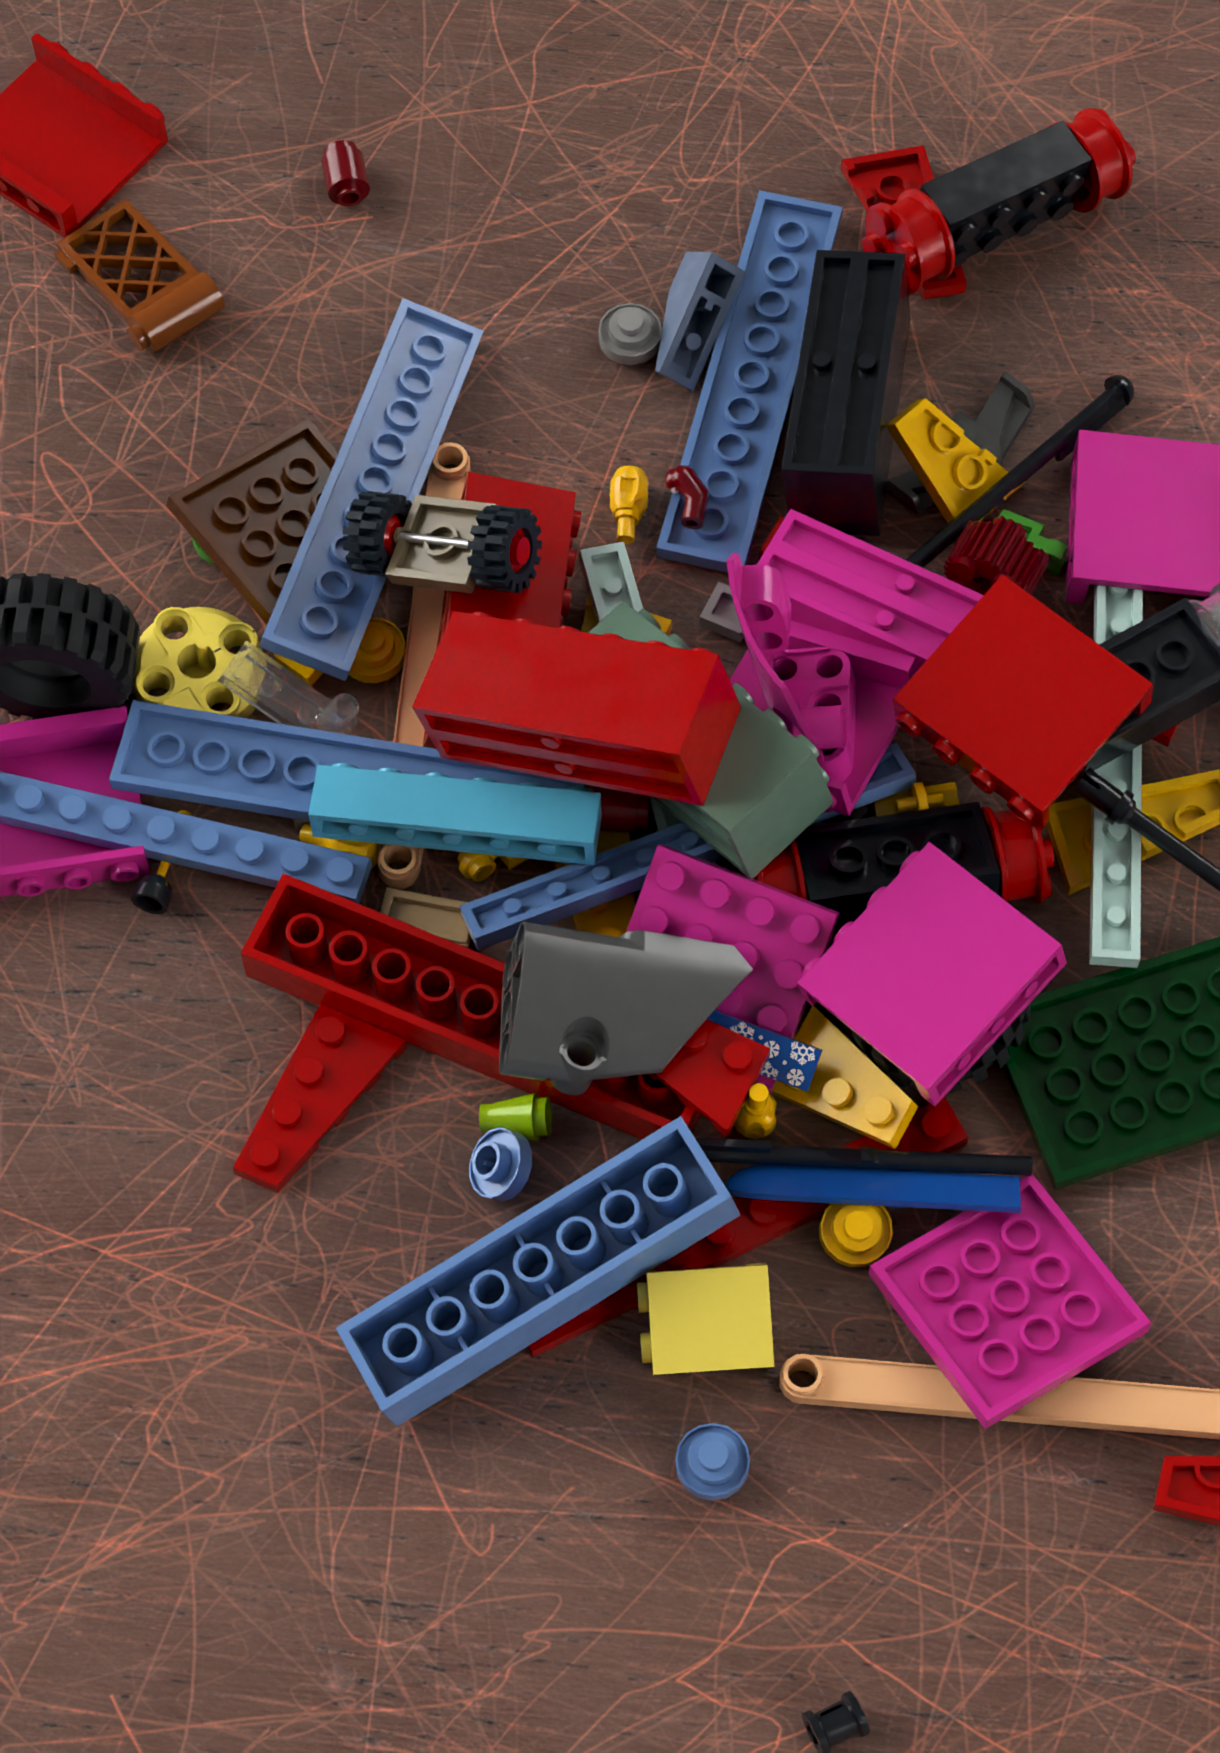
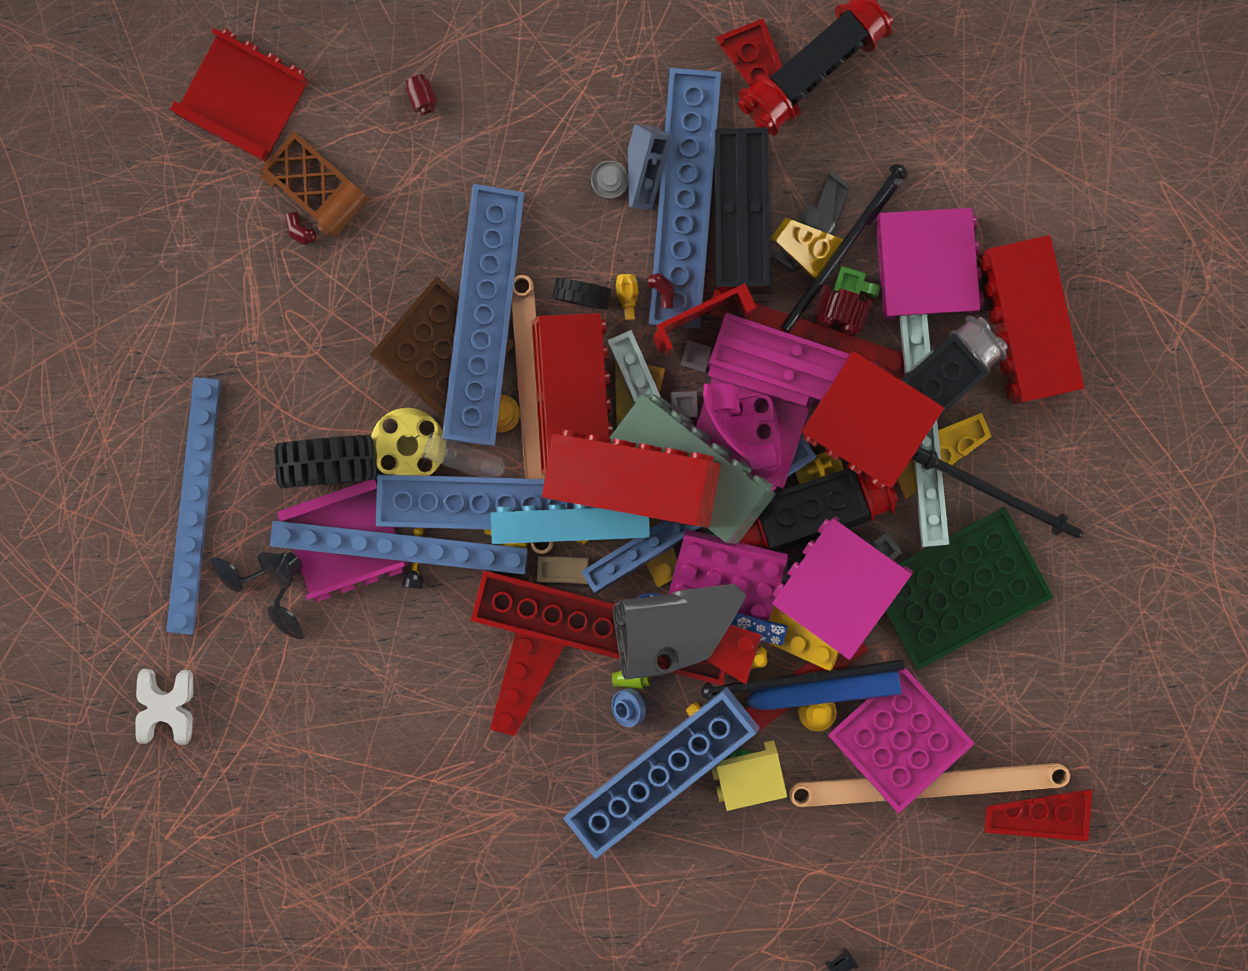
camera: 15 degrees left, 25 degrees up
(95, 338) = (298, 232): none -> dark red arm
(442, 542) = (534, 370): plate -> none
(554, 465) = (581, 293): none -> black tyre
(712, 1461) = (762, 845): medium blue plate -> none
(742, 498) = (738, 296): none -> red panel

